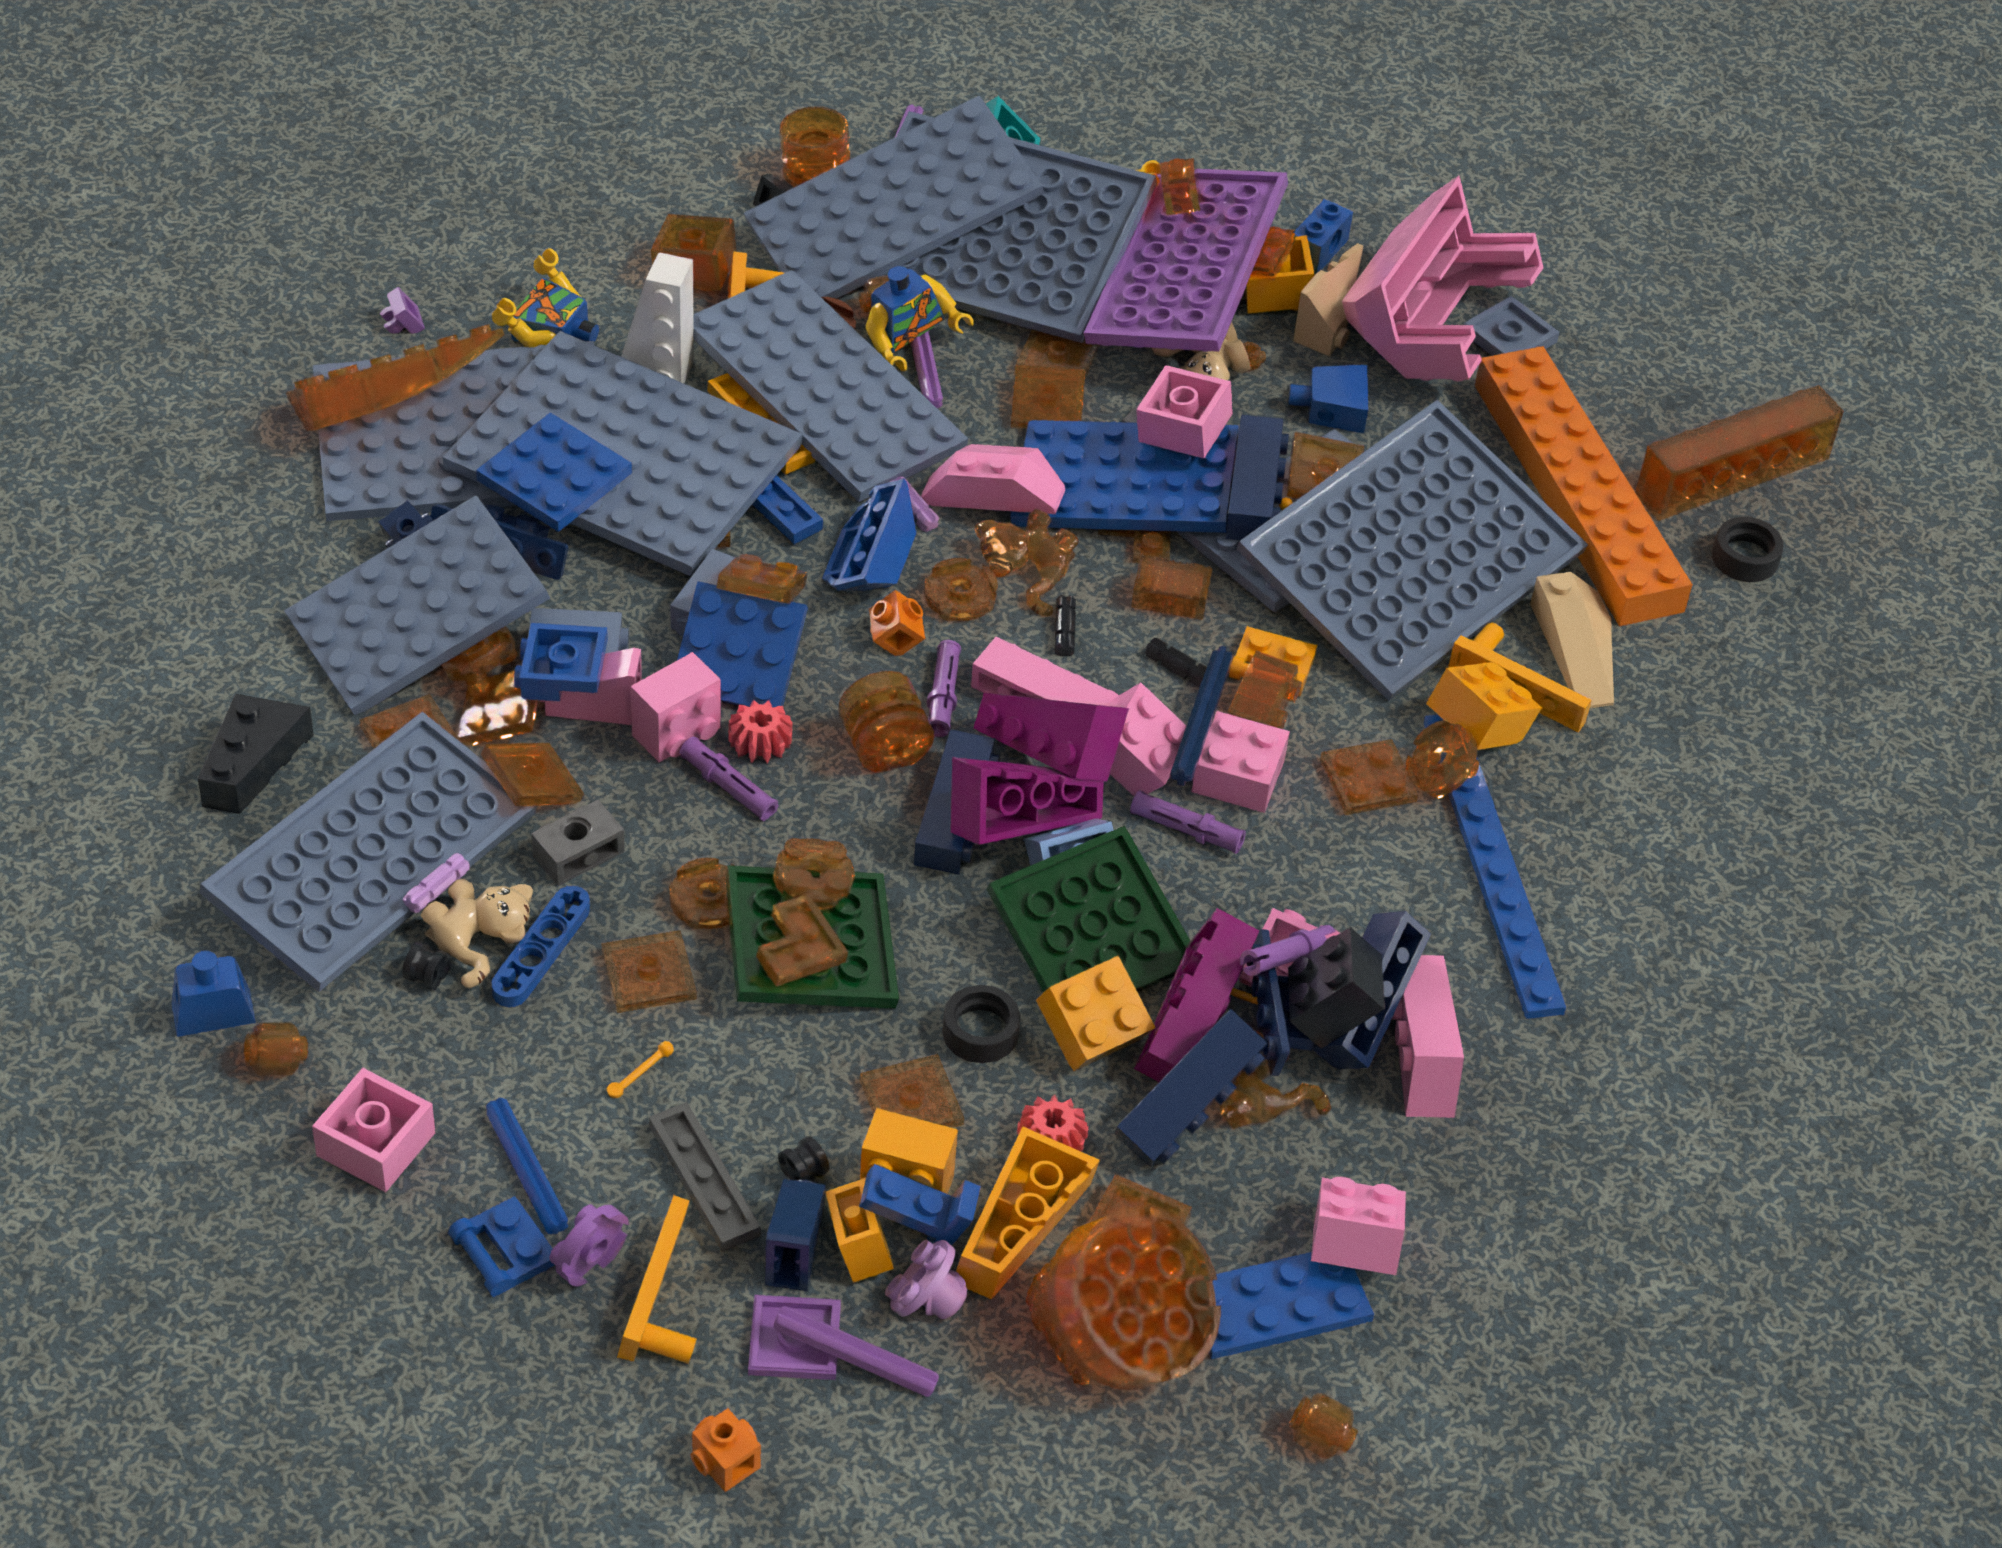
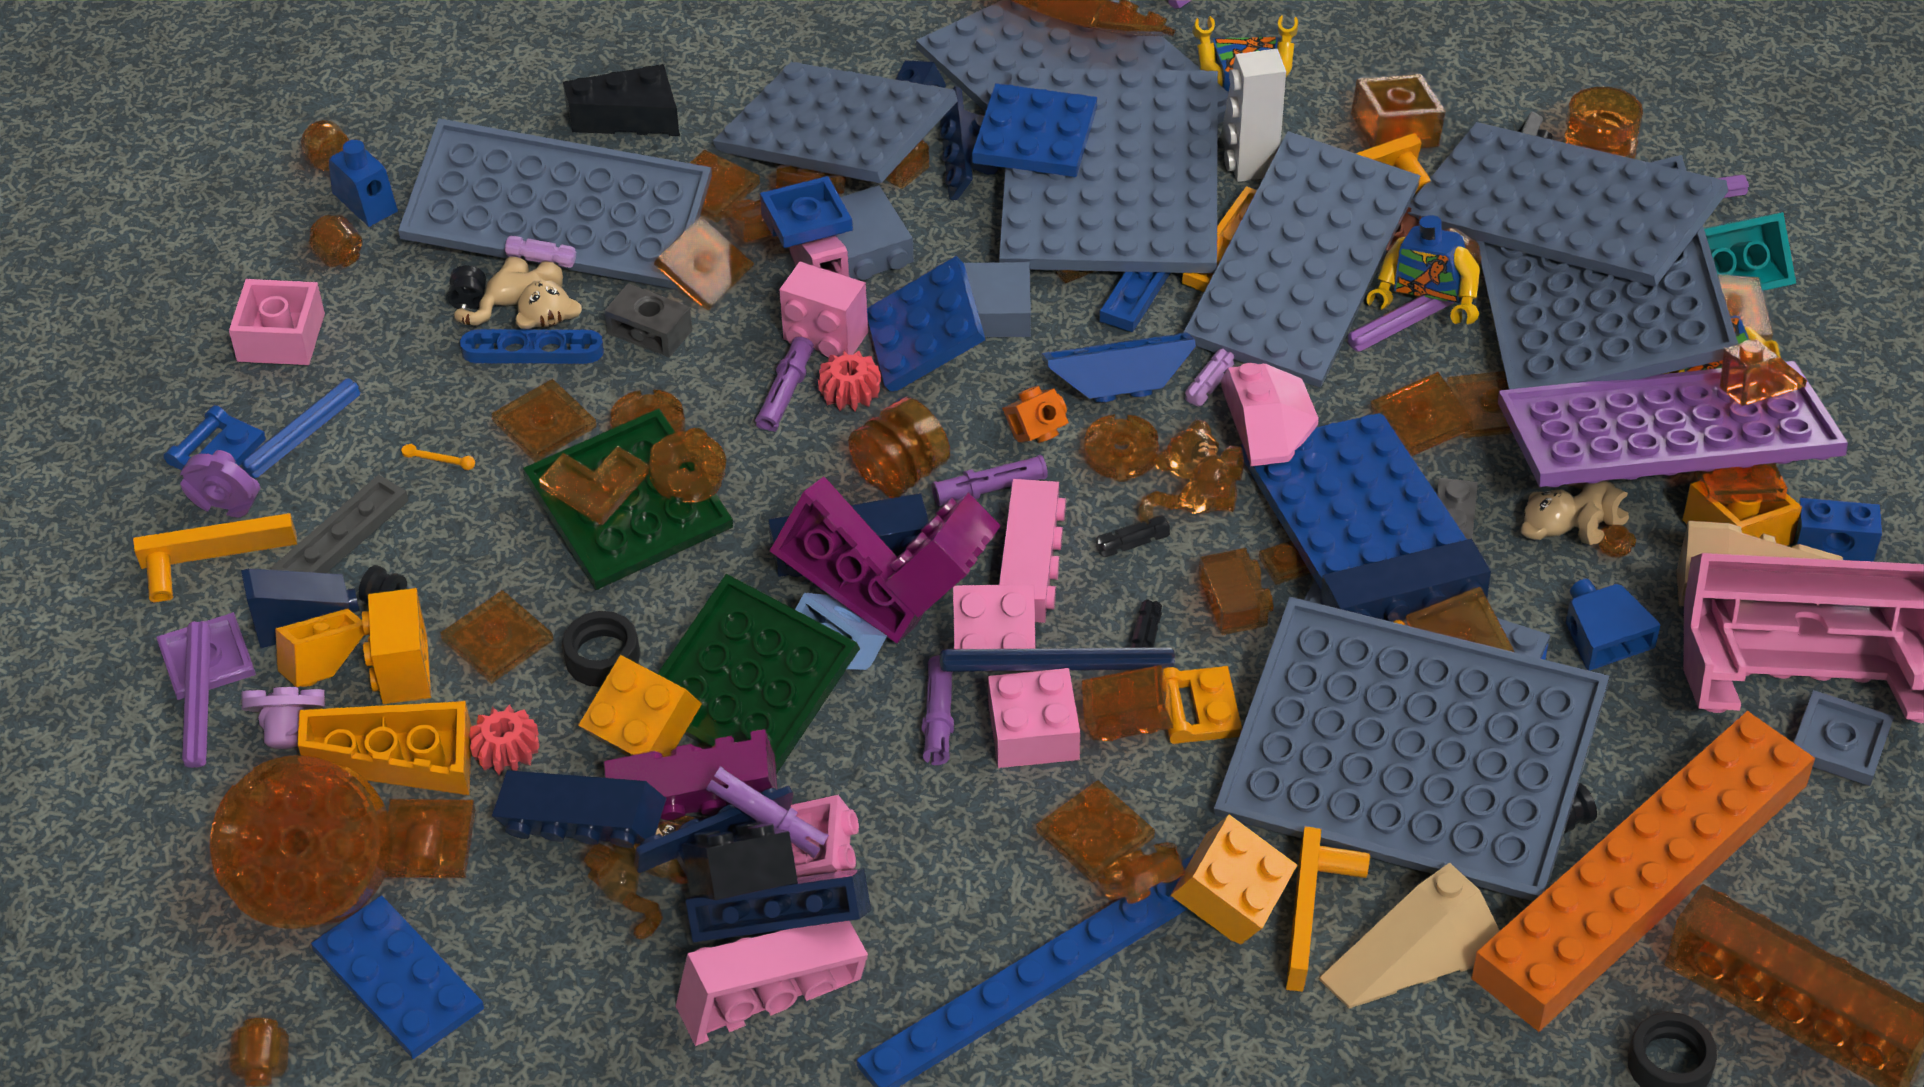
camera: 70 degrees right, 0 degrees up
(113, 1011) = (322, 141): none -> clear orange head
(725, 1449) = (58, 648): orange brick -> none
(762, 580) = (992, 296): clear orange plate -> none
(920, 1205) = (344, 660): blue bracket -> none
(1184, 411) = (1431, 491): bright pink brick -> none
(1359, 1225) = (488, 994): bright pink brick -> none

